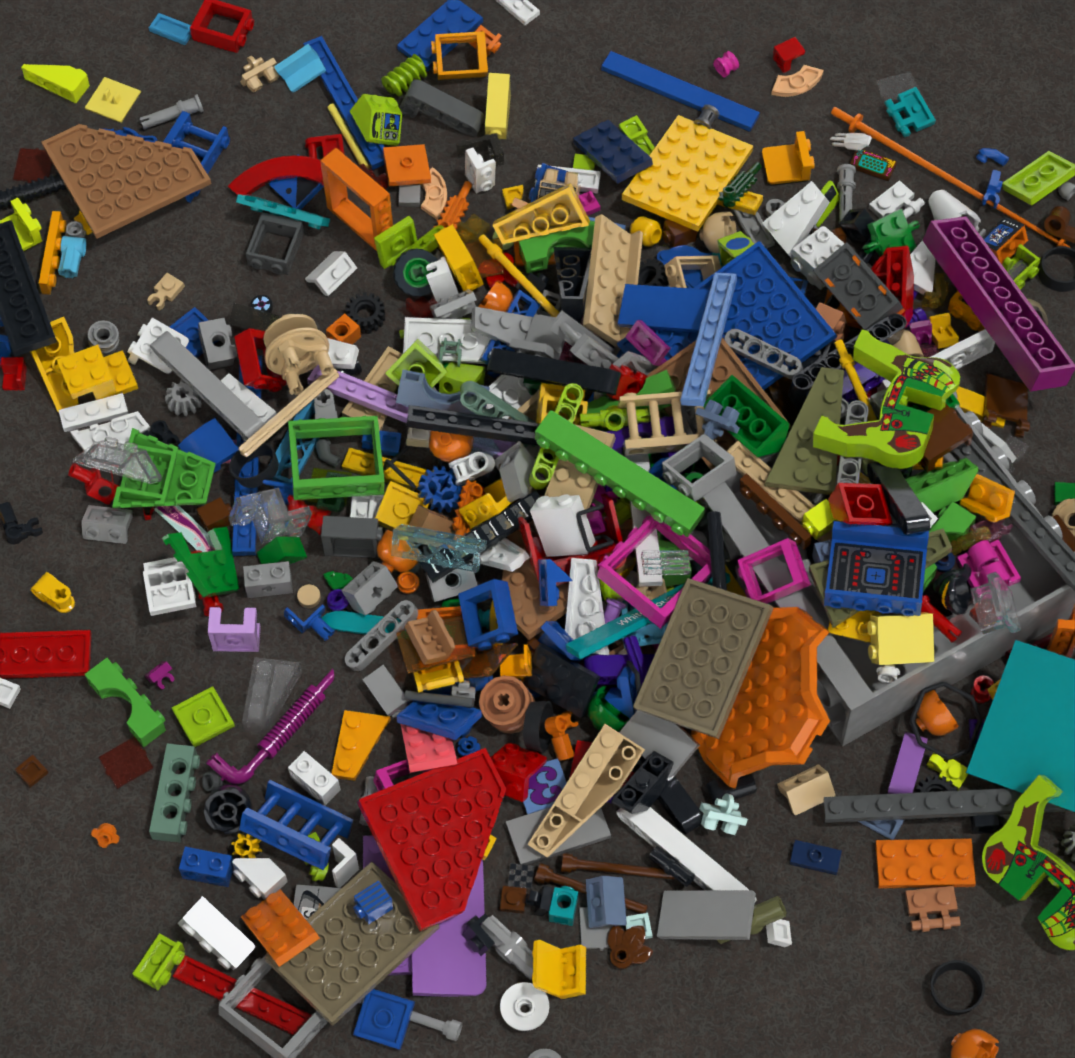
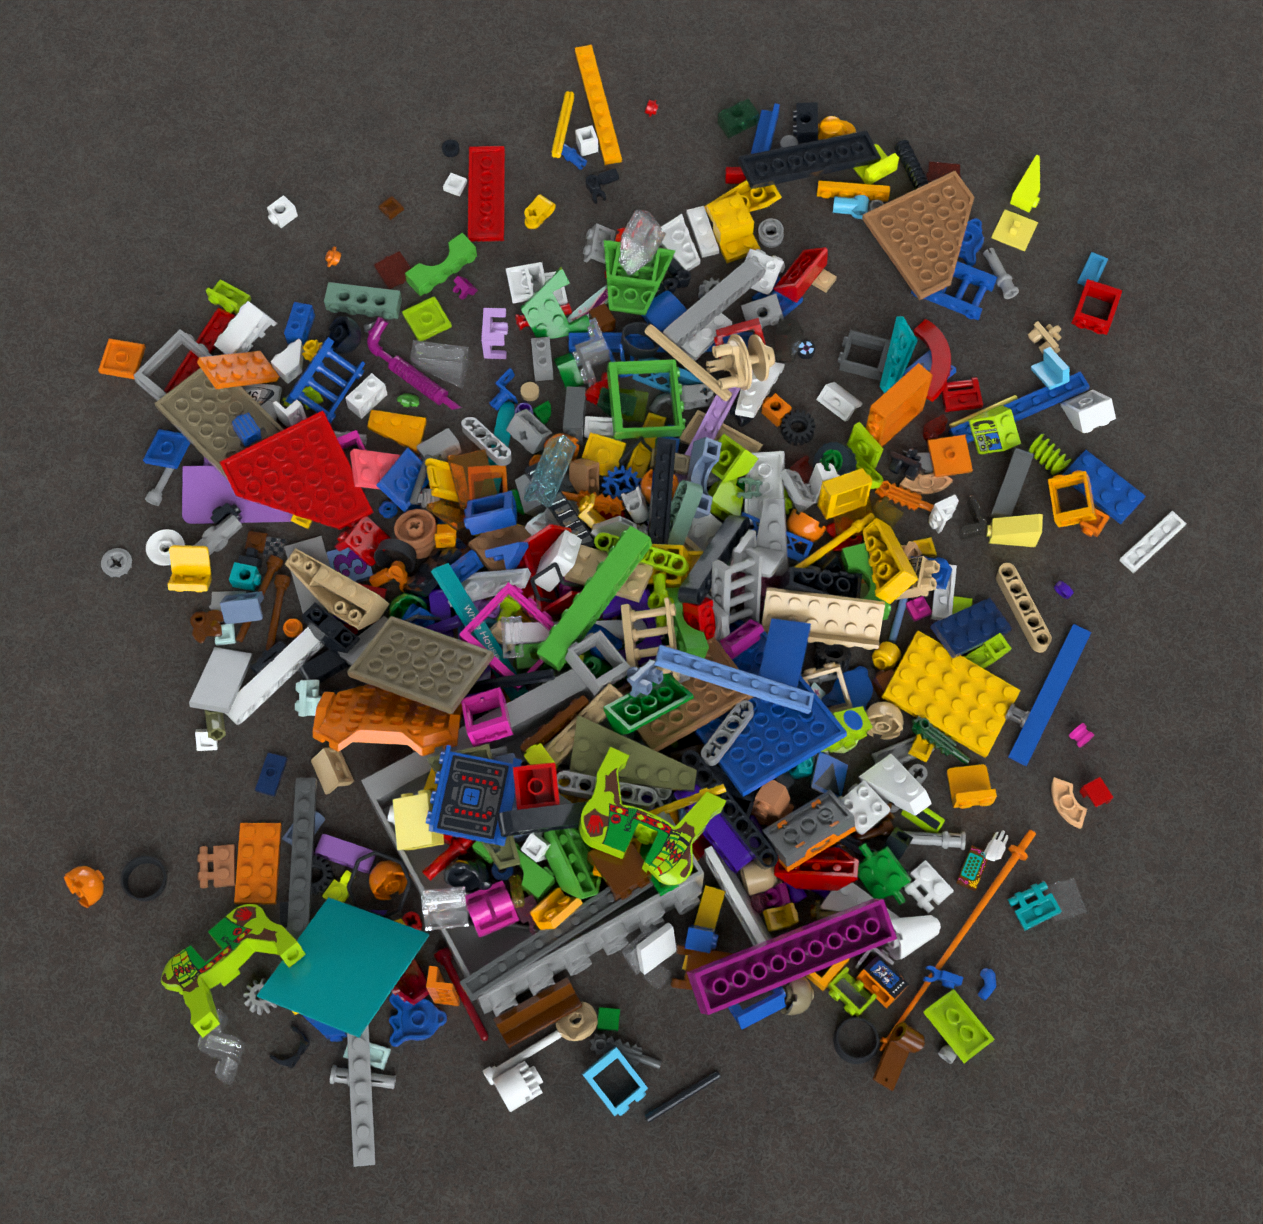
camera: 90 degrees right, 5 degrees up
(27, 895) = (281, 205): none -> white brick
(165, 301) = (802, 273): none -> red slope
(318, 730) = (408, 399): none -> bright green plant
(350, 38) = (1089, 411): none -> white slope
(423, 197) = (909, 460): none -> black hips
(430, 638) = (472, 469): medium nougat bracket -> none
(563, 71) = (1063, 589): none -> dark purple tile
(585, 107) = (1023, 616): none -> tan beam
(628, 846) = (292, 628): none -> orange plate
(983, 392) = (701, 938): none -> blue brick

